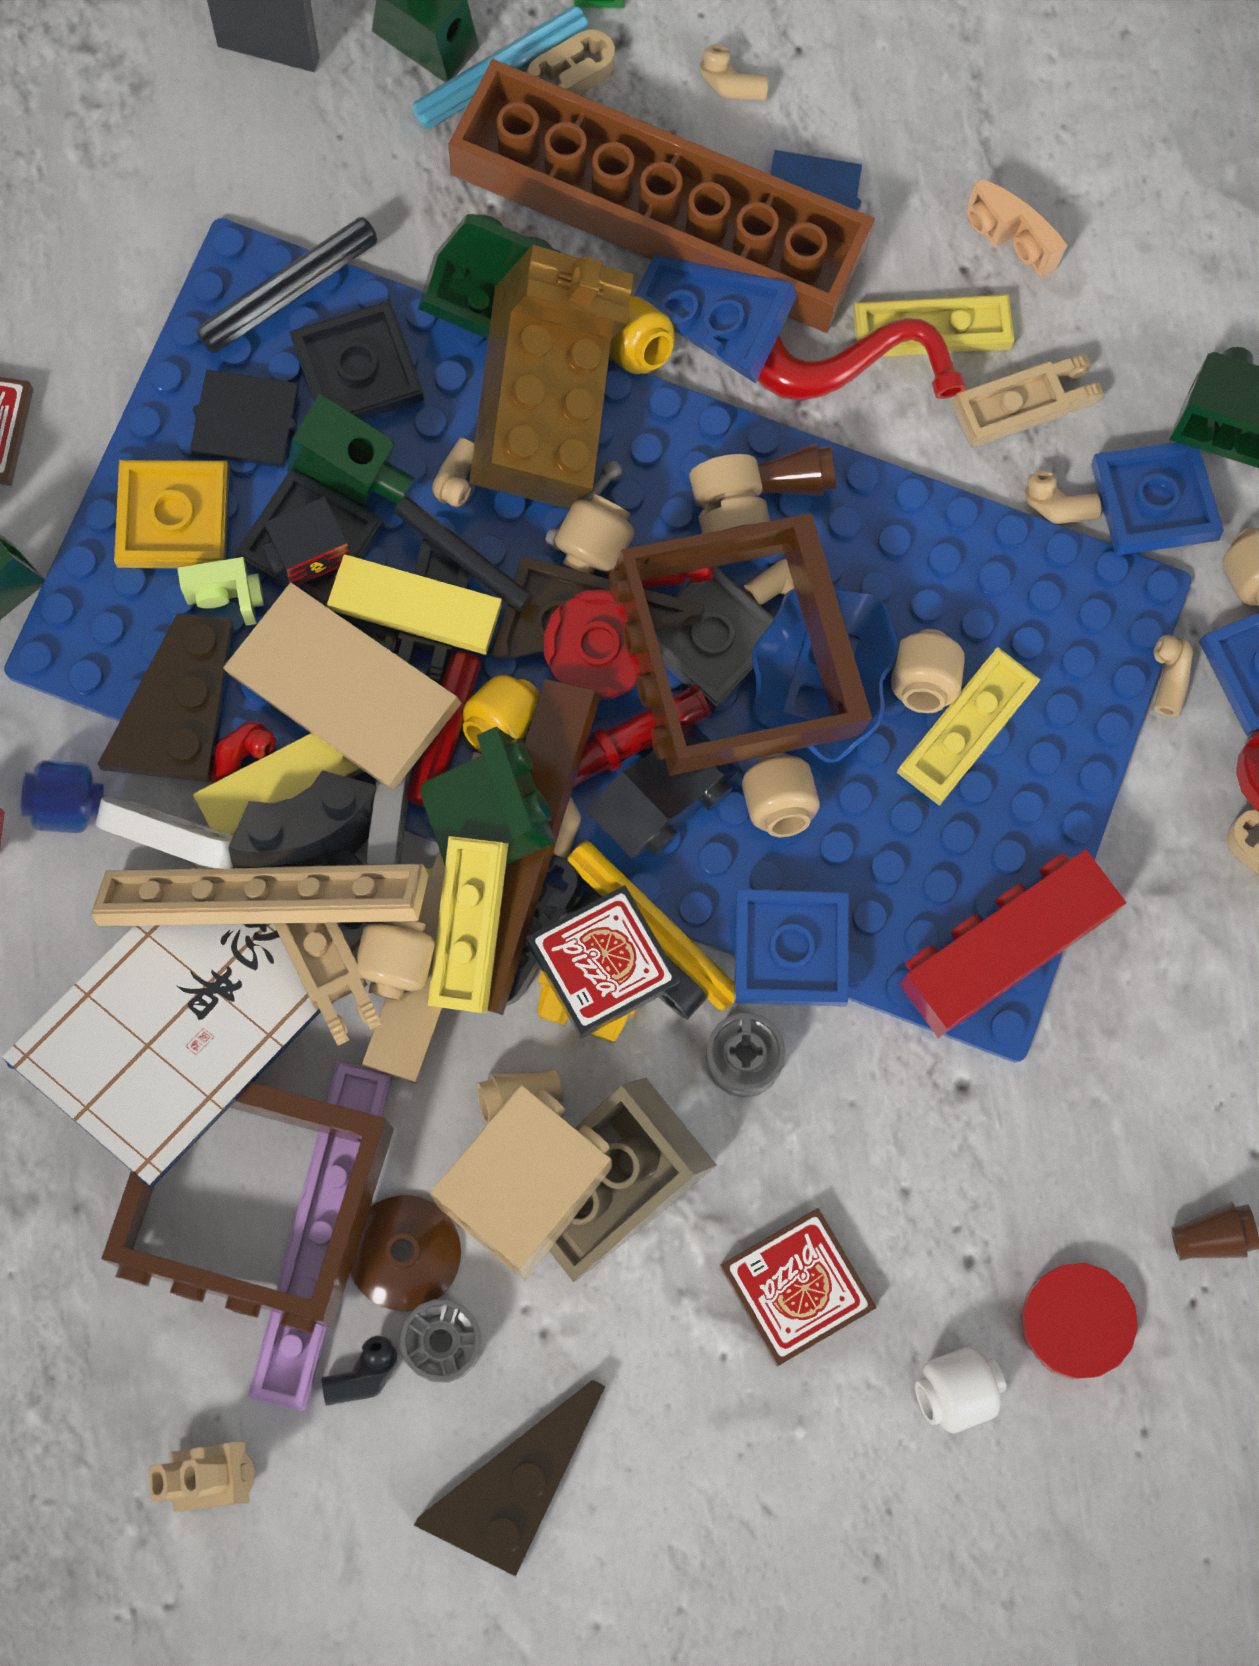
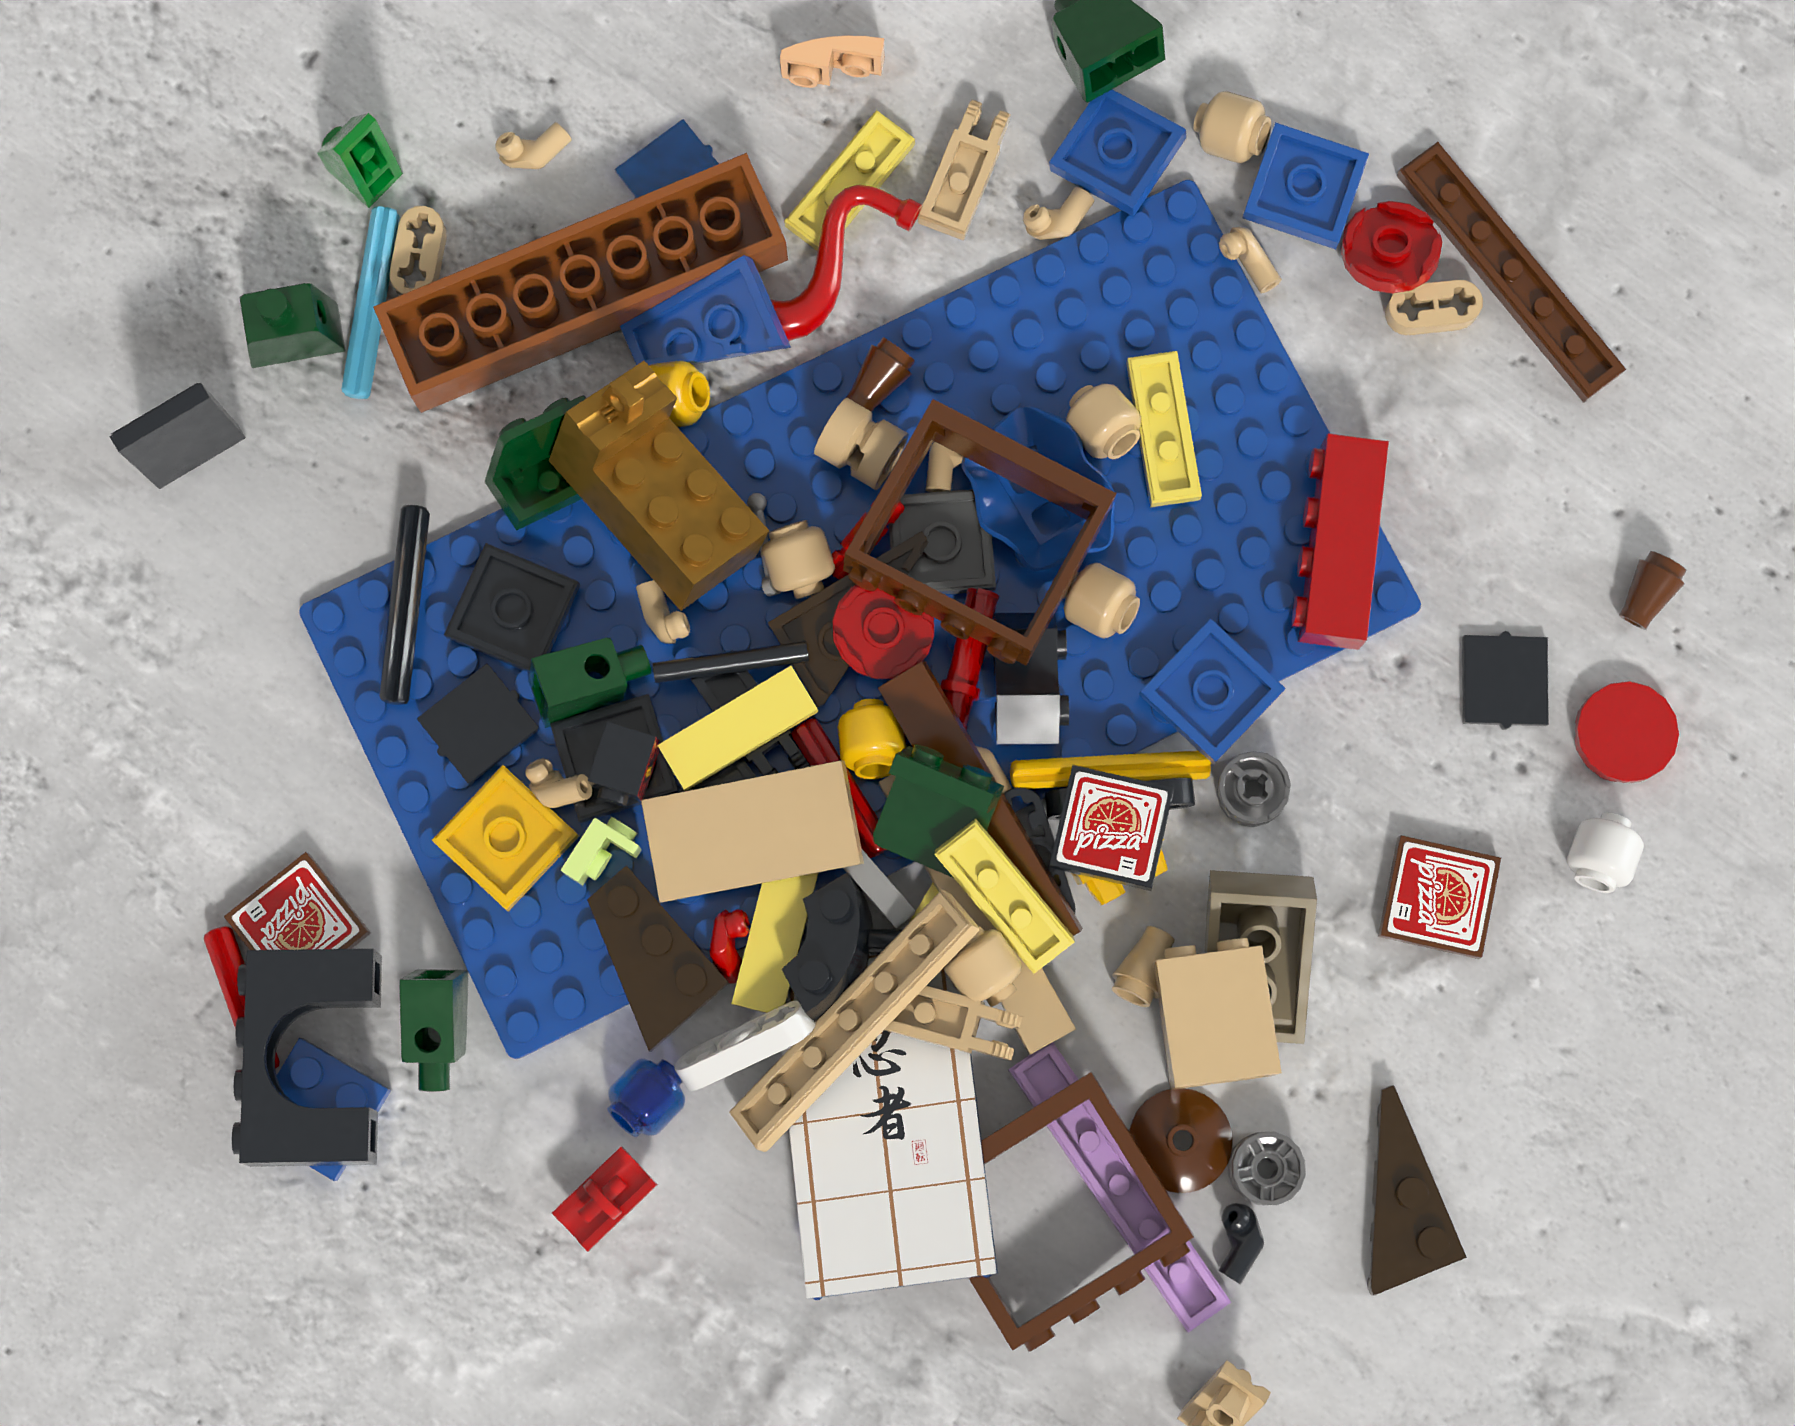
camera: 40 degrees left, 5 degrees up
(242, 511) = (552, 788): none -> tan arm
(1028, 1183) = (1505, 680): none -> black piece

